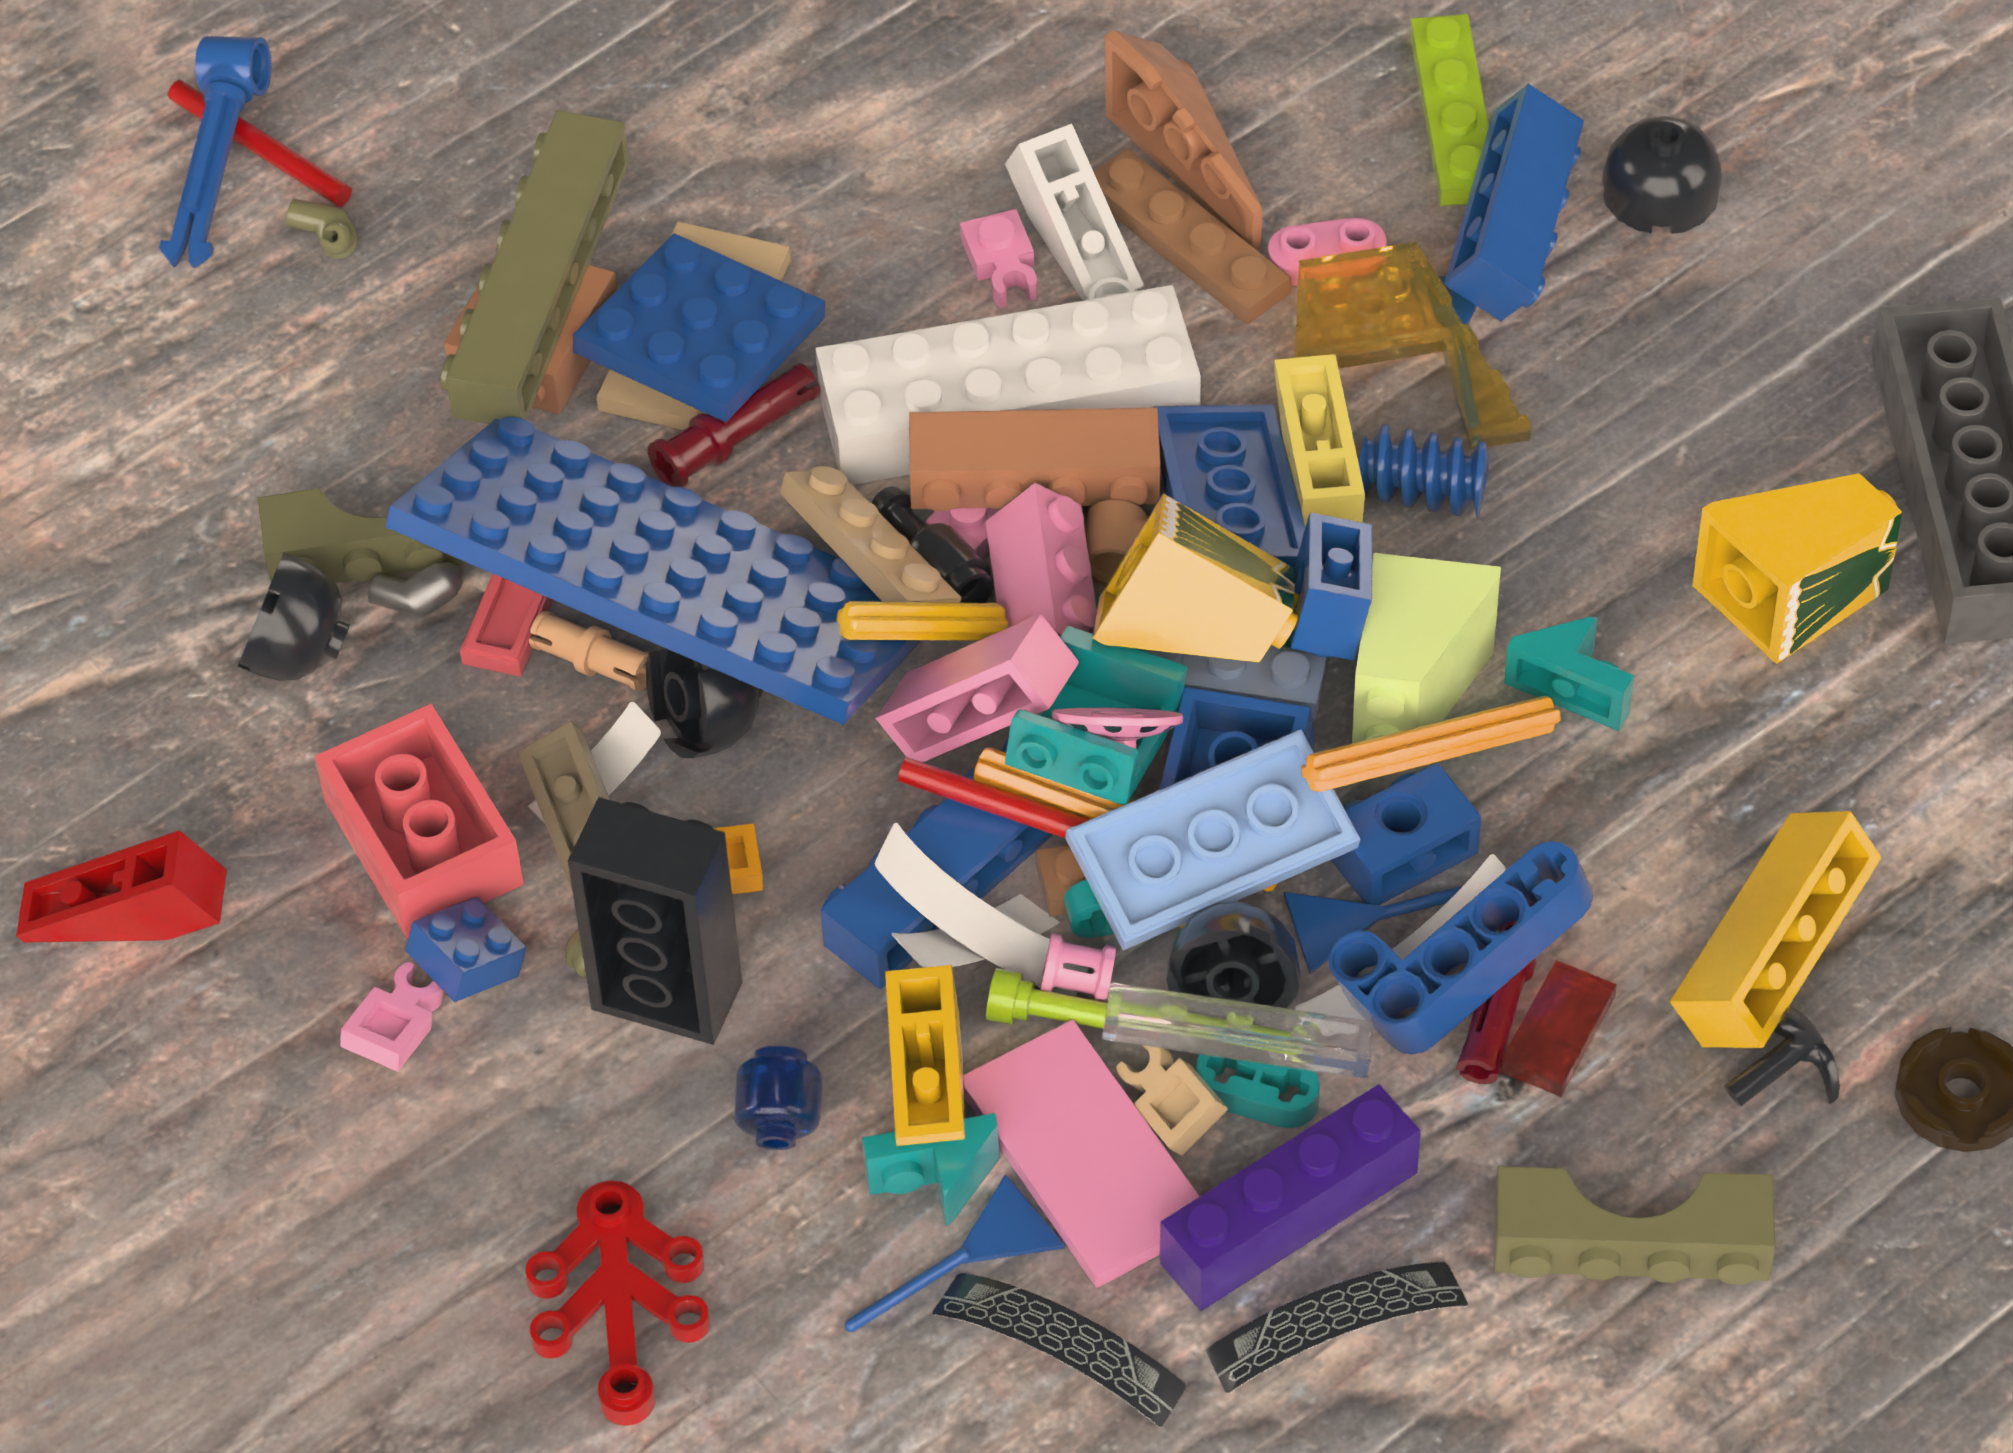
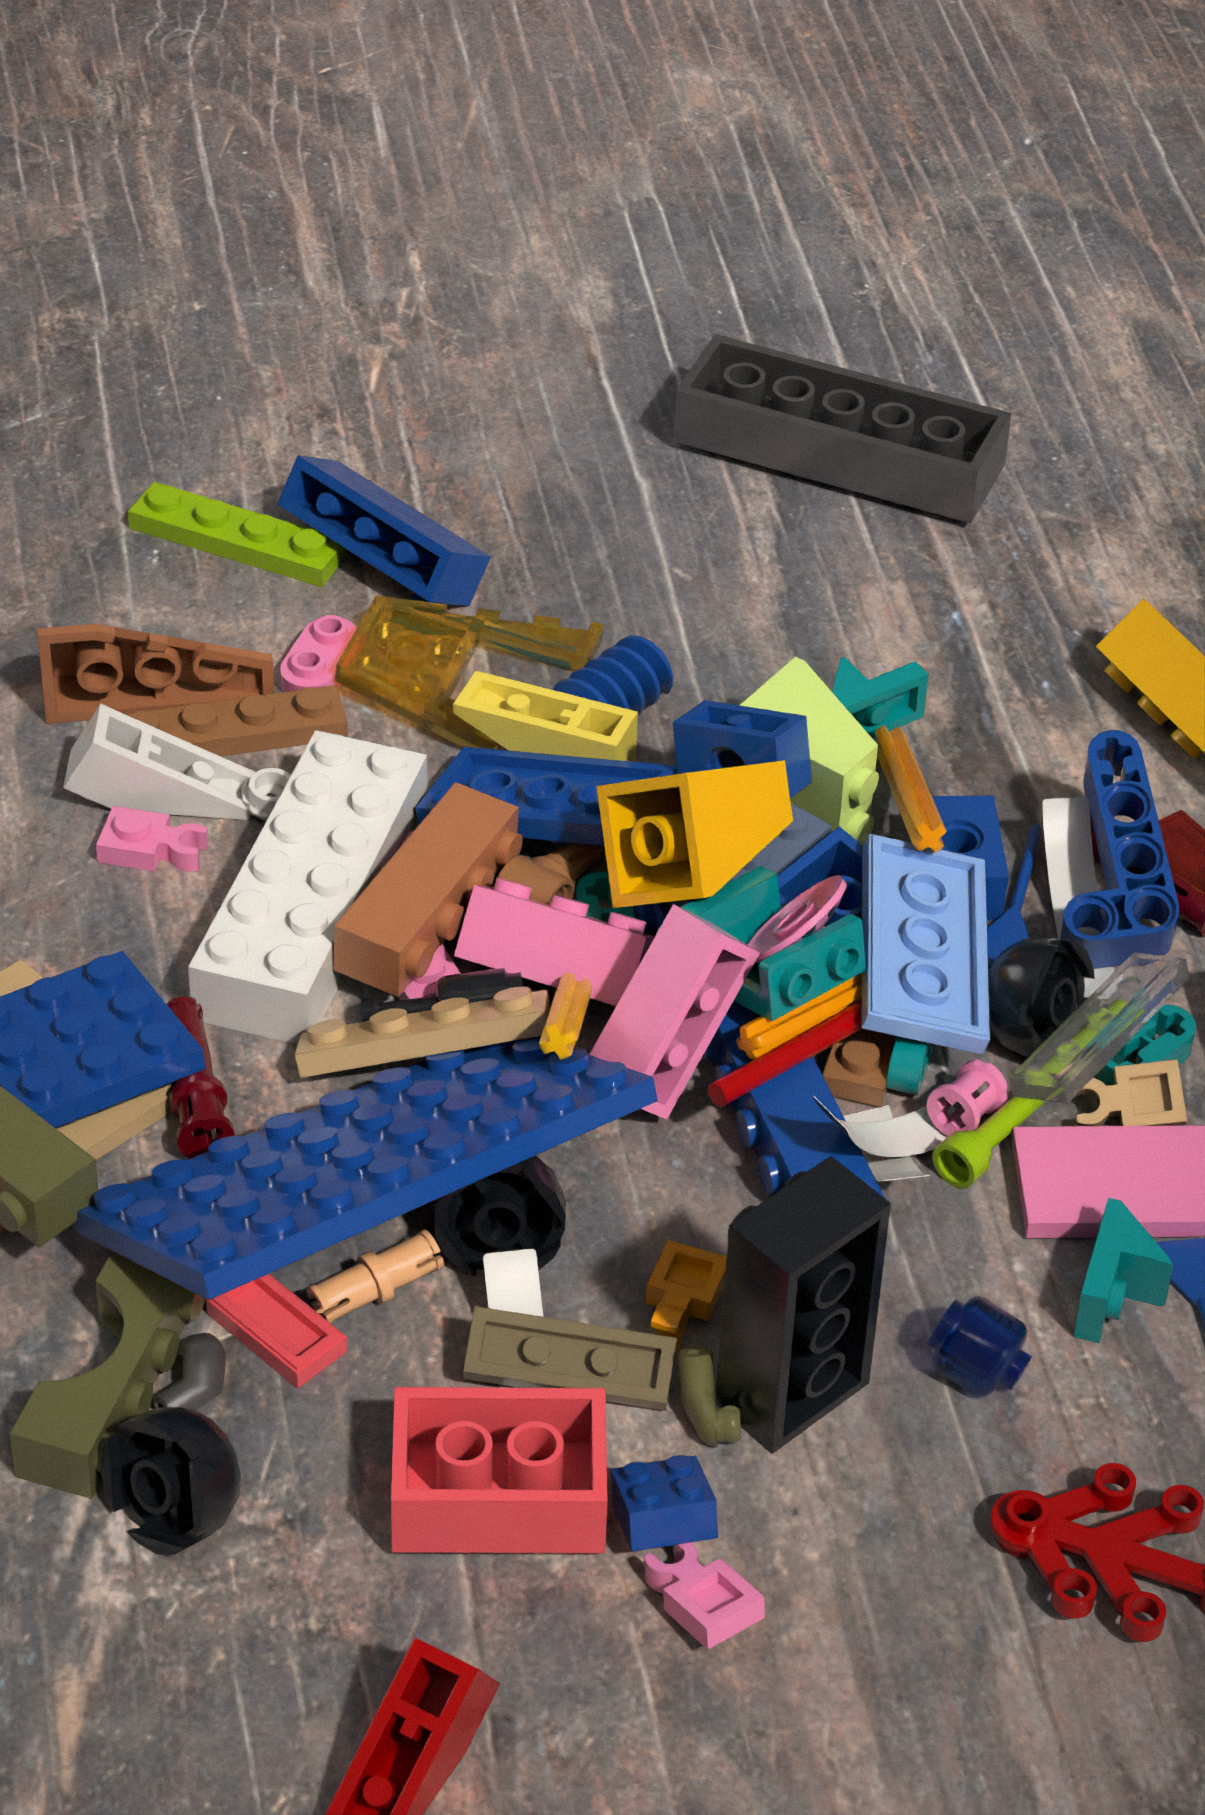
camera: 65 degrees left, 10 degrees down
(925, 1055) = (1021, 1218): yellow slope -> none
(1662, 175) = (414, 455): black cylinder -> none
(1796, 558) = (871, 540): yellow slope -> none

